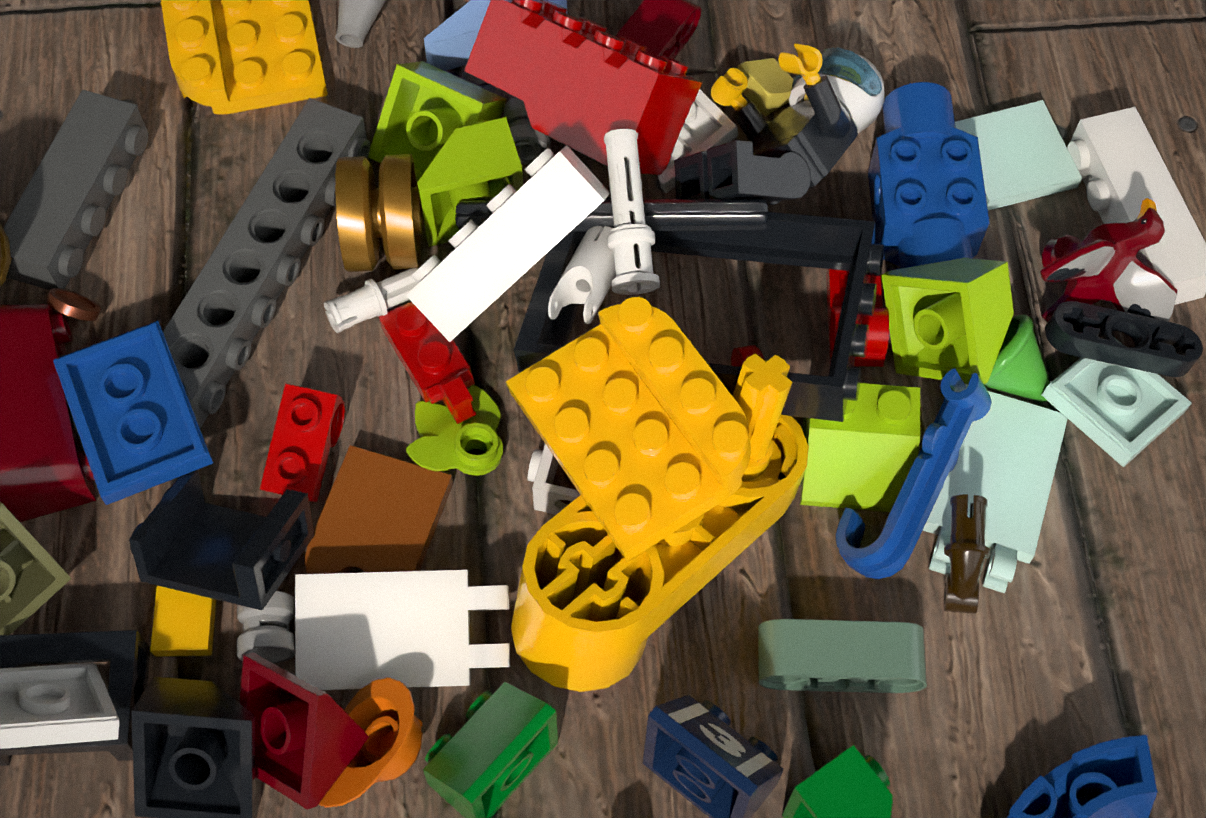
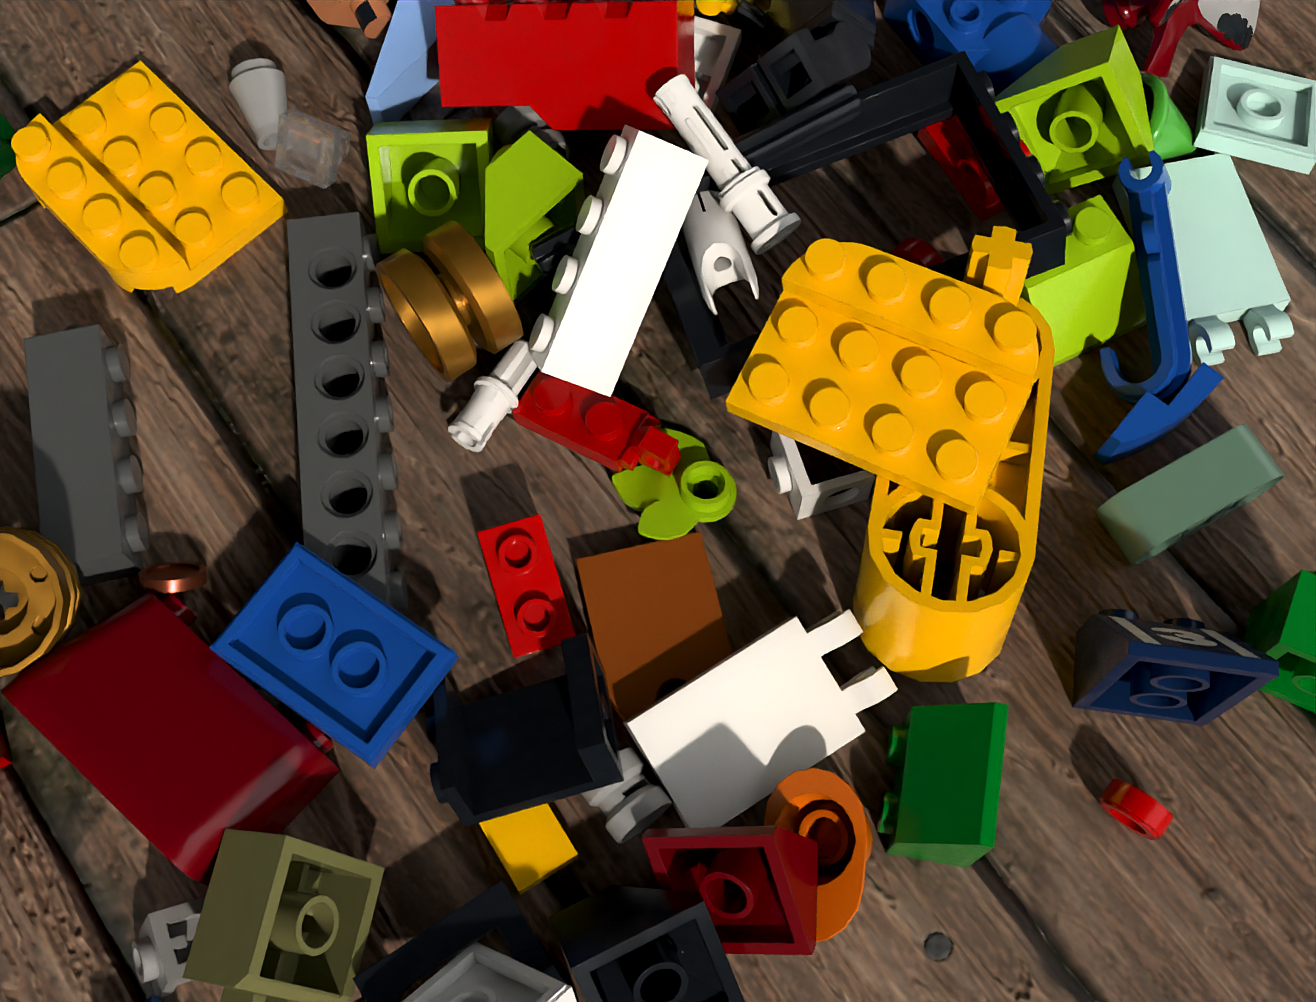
camera: 30 degrees left, 5 degrees up
(368, 56) = (310, 148): none -> clear tile
(843, 586) = (1153, 419): none -> blue slope
(965, 553) = (1246, 328): dark brown piece -> none
(1159, 344) = (1199, 63): black beam -> none

